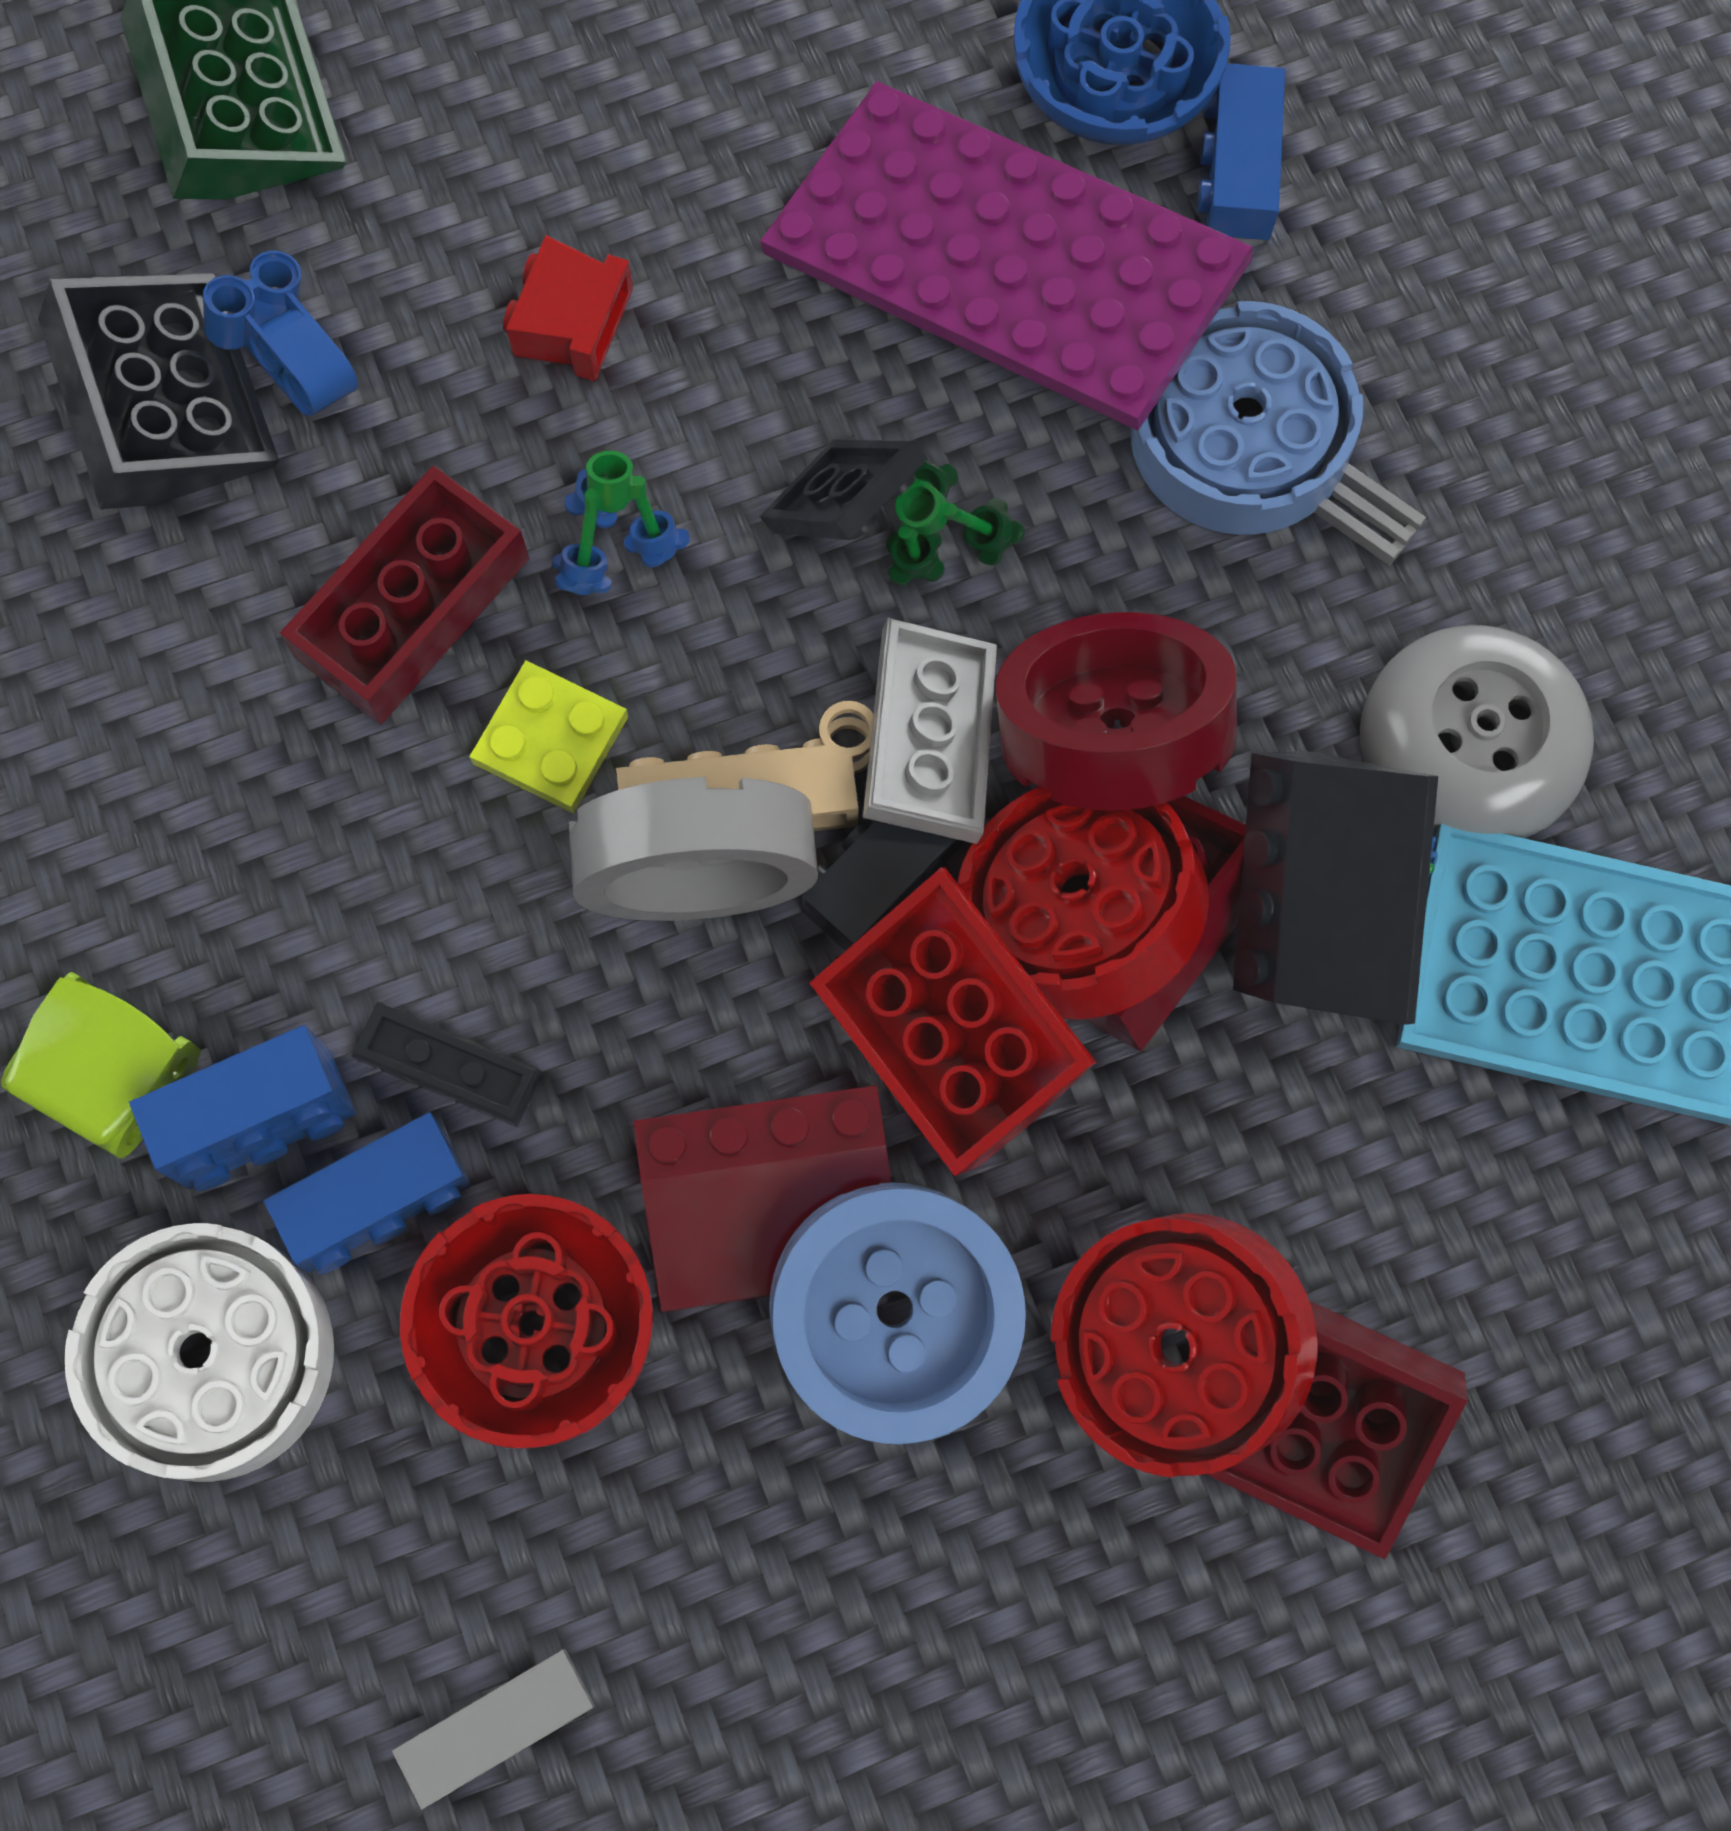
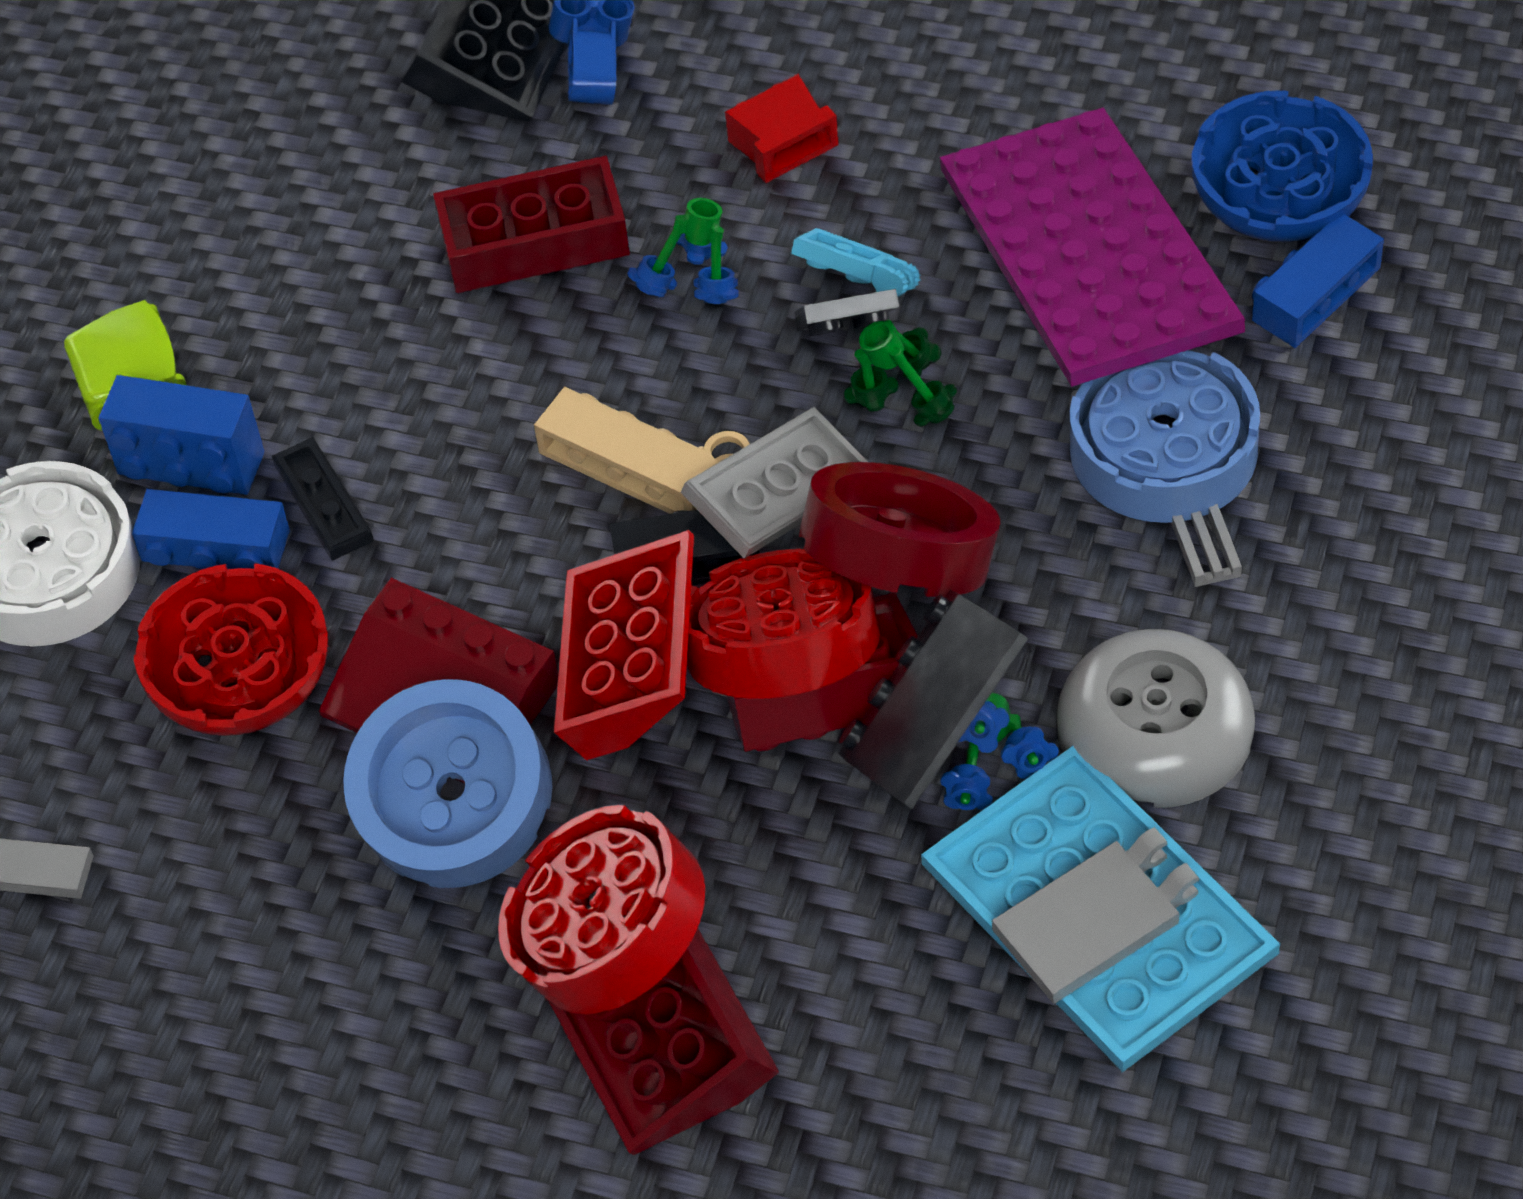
camera: 45 degrees right, 20 degrees down
(549, 736) = (548, 356): neon yellow plate -> none
(692, 850) = (556, 441): light grey brick -> none
(780, 418) = (856, 260): none -> medium azure hinge
(1619, 995) = (1095, 915): none -> light grey tile

